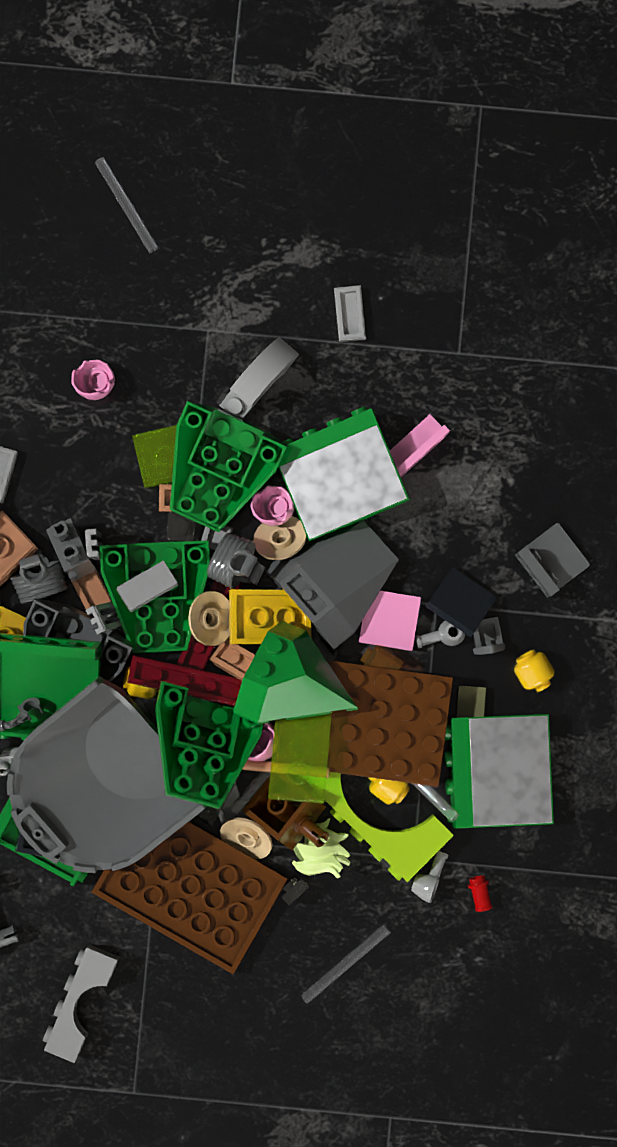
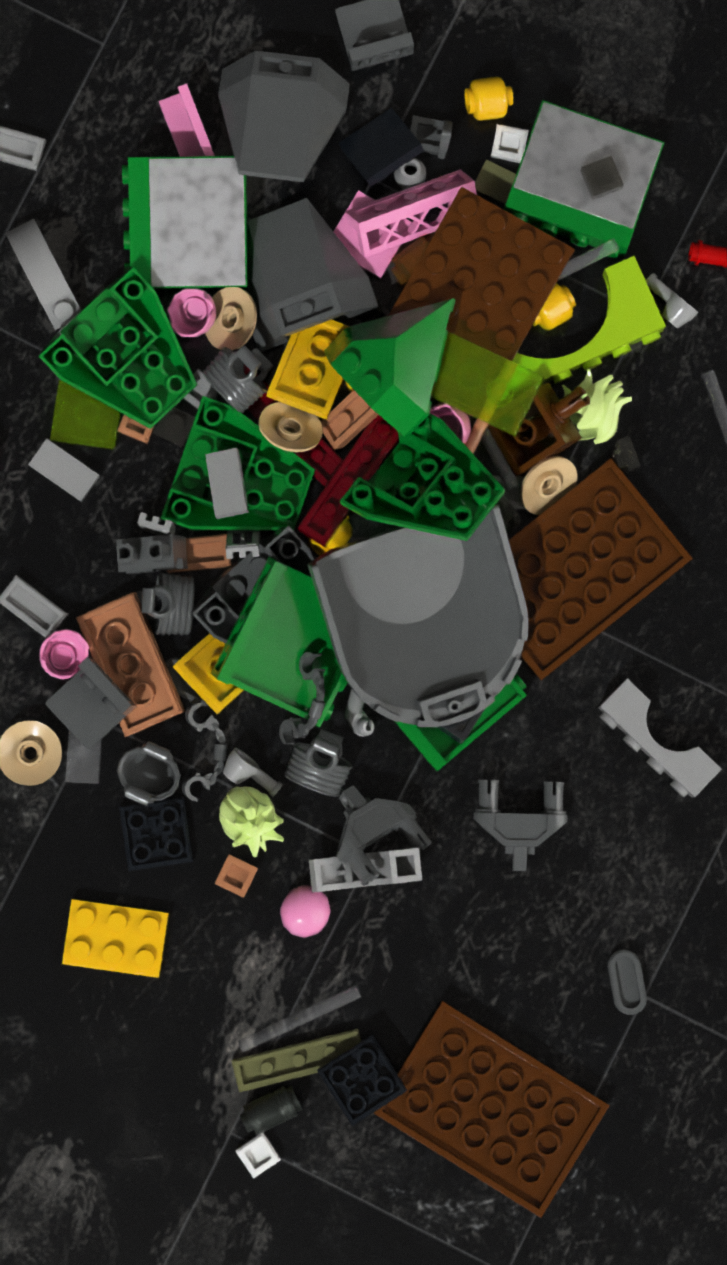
camera: 70 degrees left, 0 degrees up
(113, 455) = (64, 470): none -> light grey tile
(423, 640) = (403, 205): none -> bright pink fence
(455, 513) = (280, 112): none -> dark grey wedge
(503, 786) = (602, 177): none -> clear smoke plate
(506, 701) = (509, 143): none -> white tile

